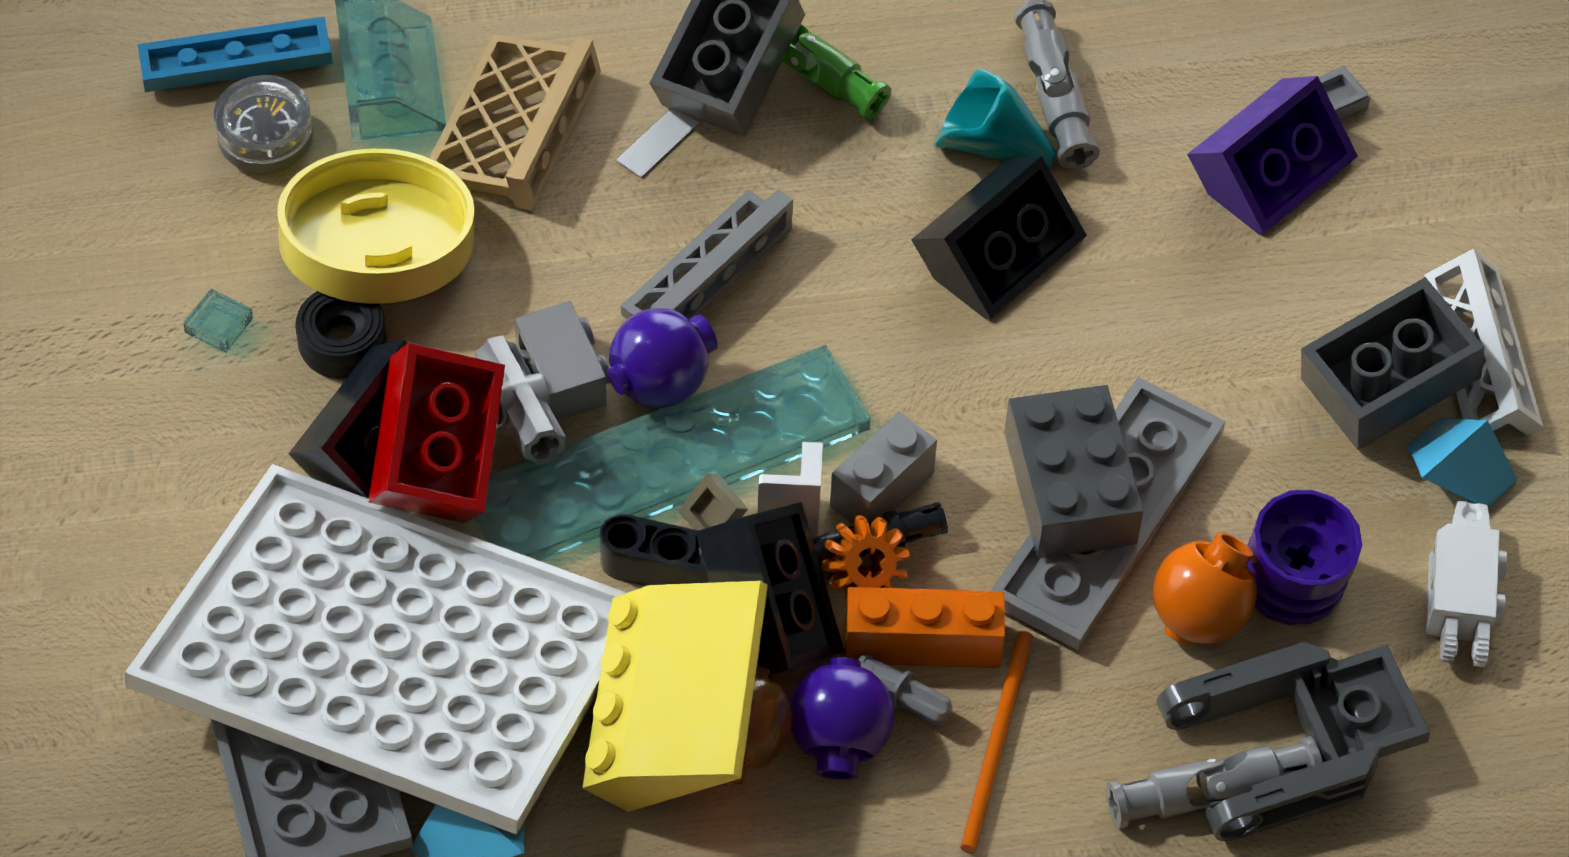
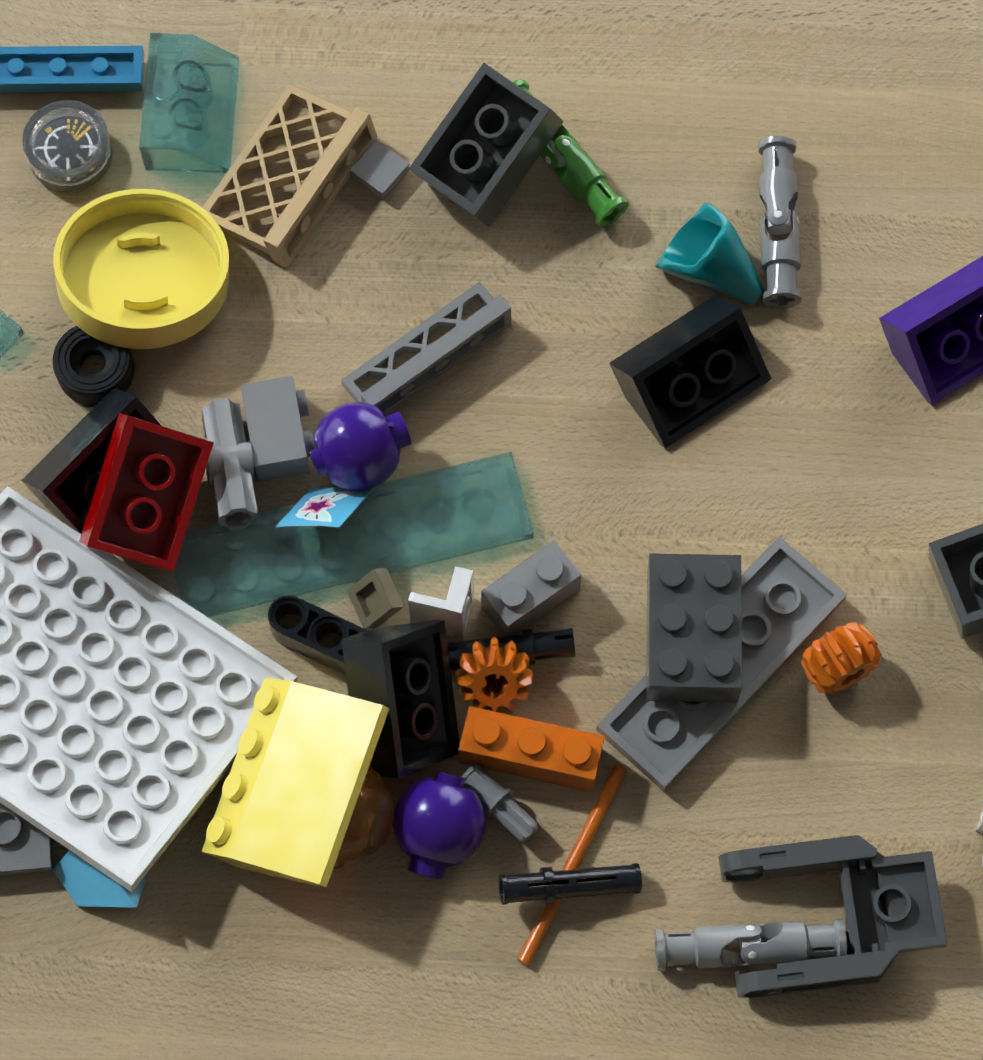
camera: 15 degrees right, 15 degrees up
(612, 100) = (379, 170): none -> light grey tile
(636, 422) = (324, 507): none -> medium azure sticker
(657, 142) = (411, 217): white sticker -> none
(982, 757) = (553, 885): none -> black pin
(1205, 590) = (784, 765): orange brick -> none
(1237, 480) = (841, 658): none -> orange gear
(1307, 534) = (893, 726): dark purple wheel -> none

